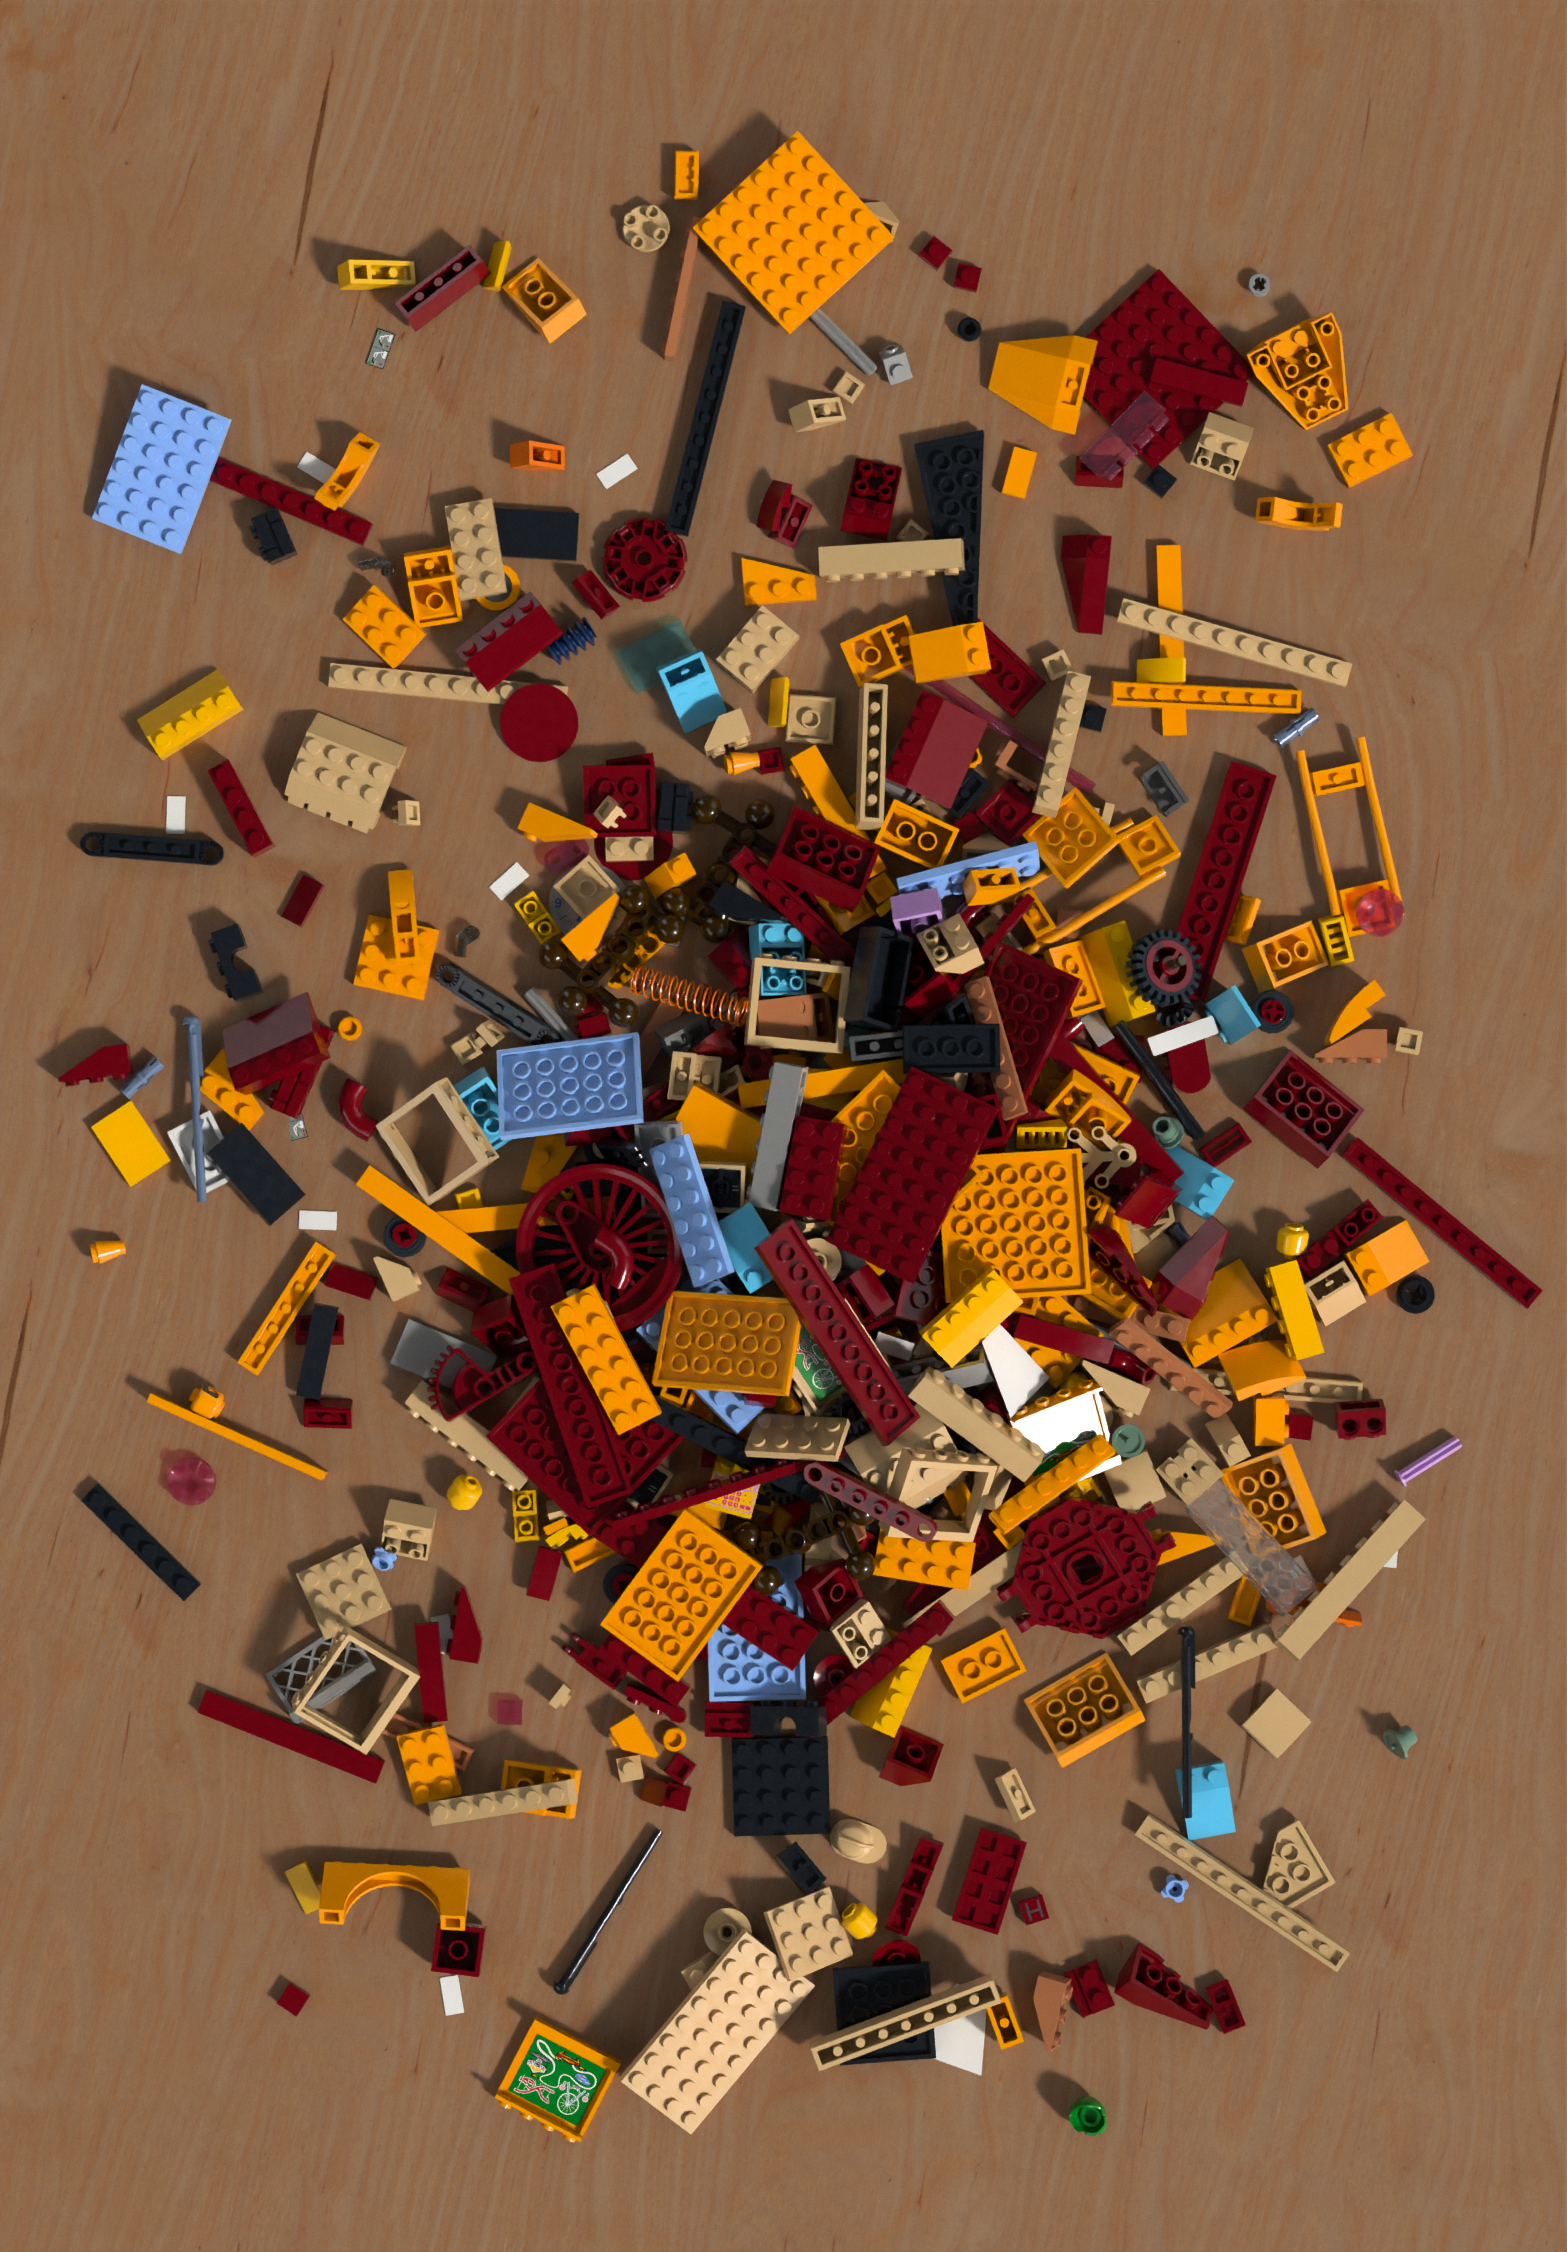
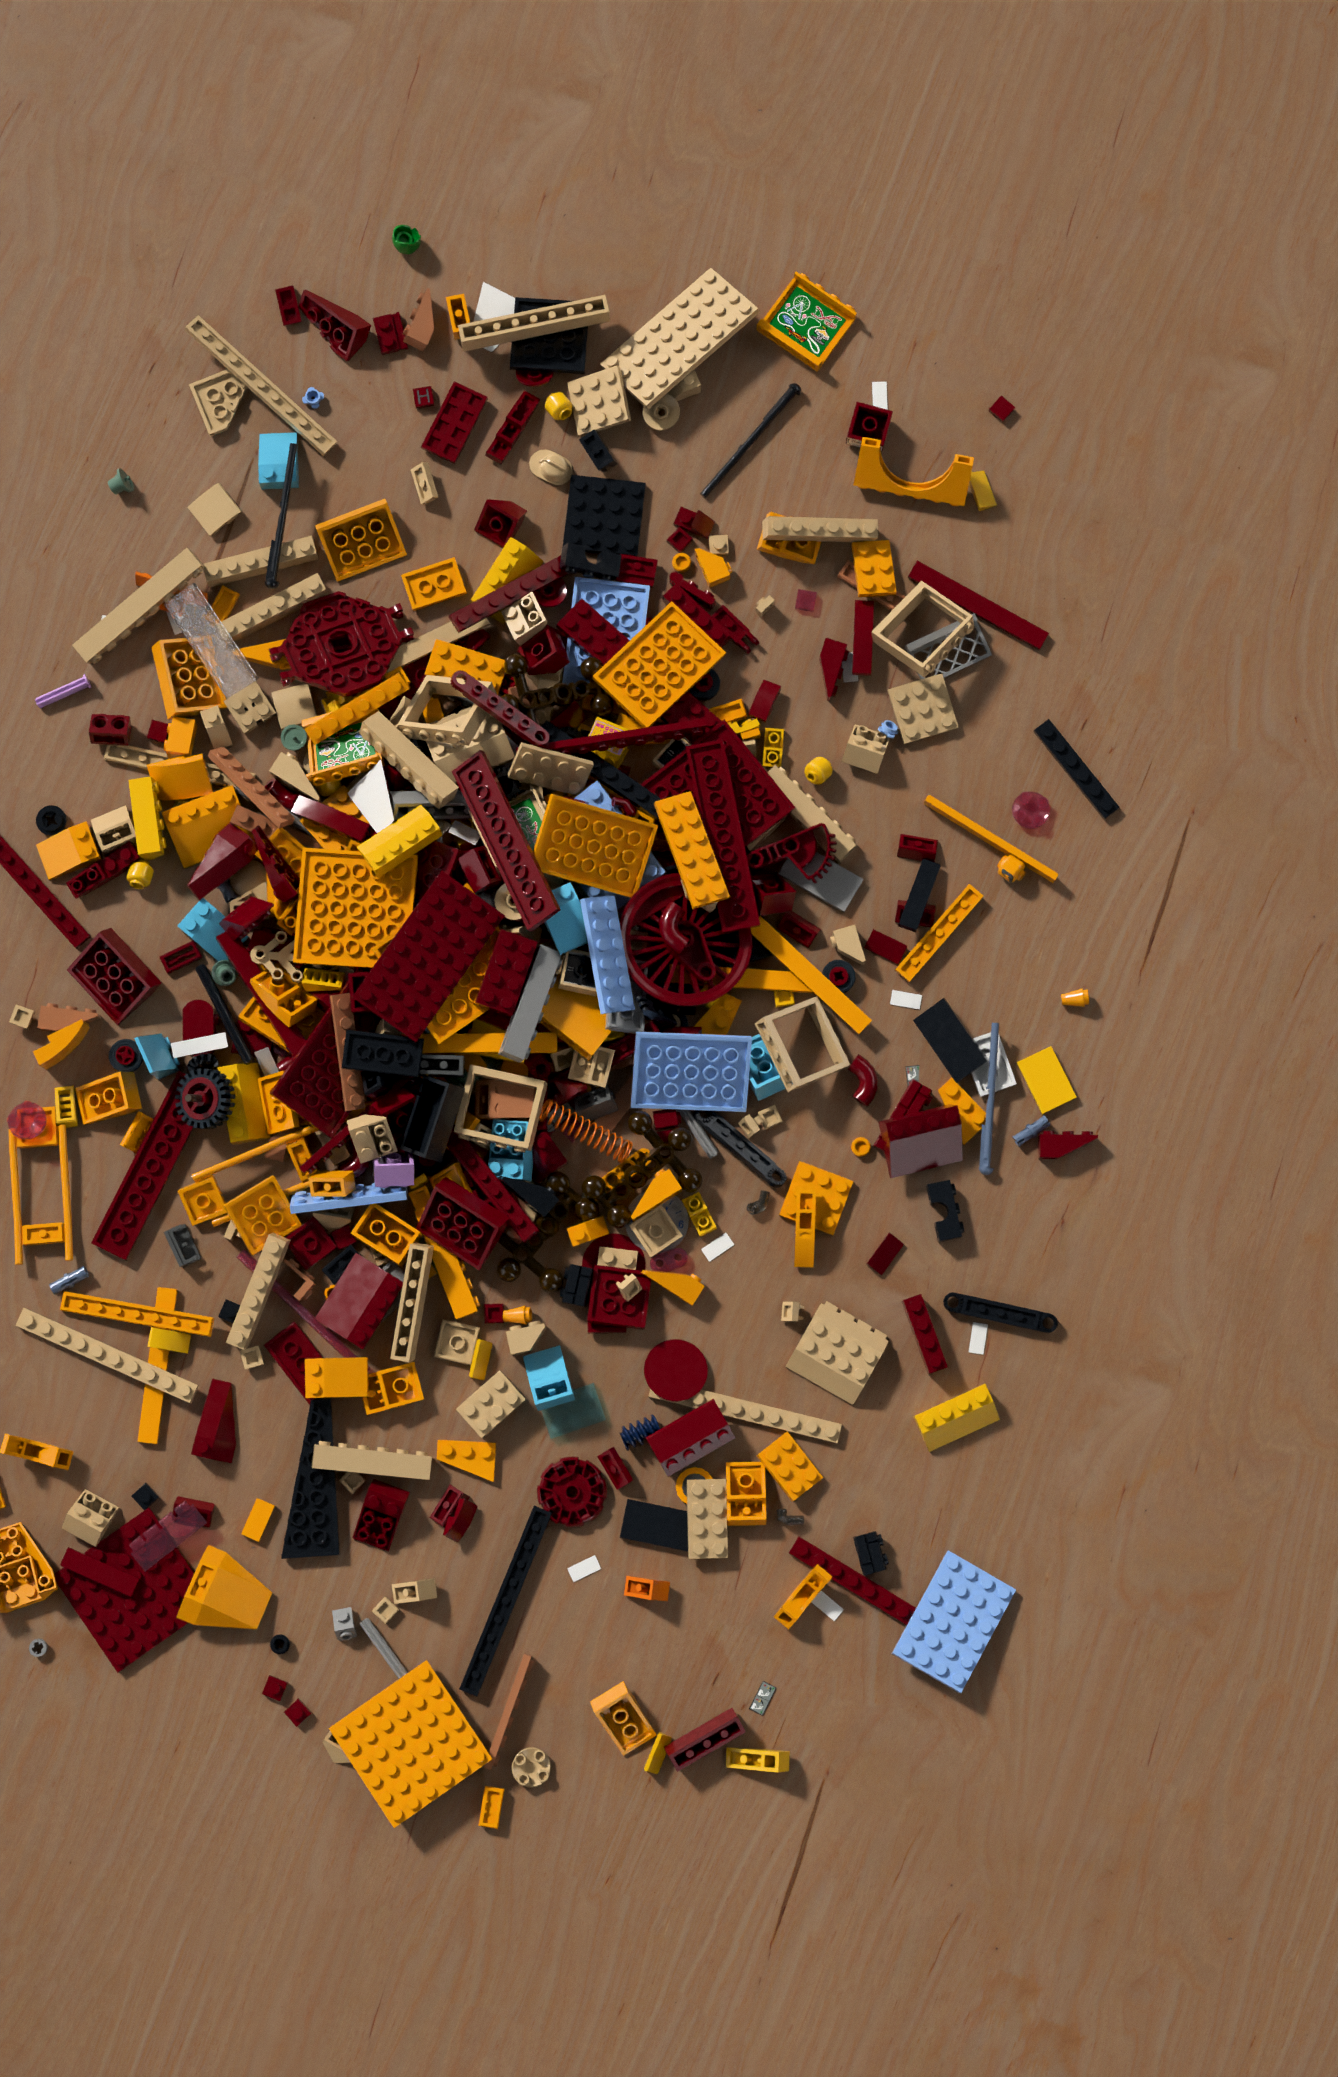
camera: 170 degrees left, 5 degrees down
(696, 1407) = (625, 804): none -> dark red arm

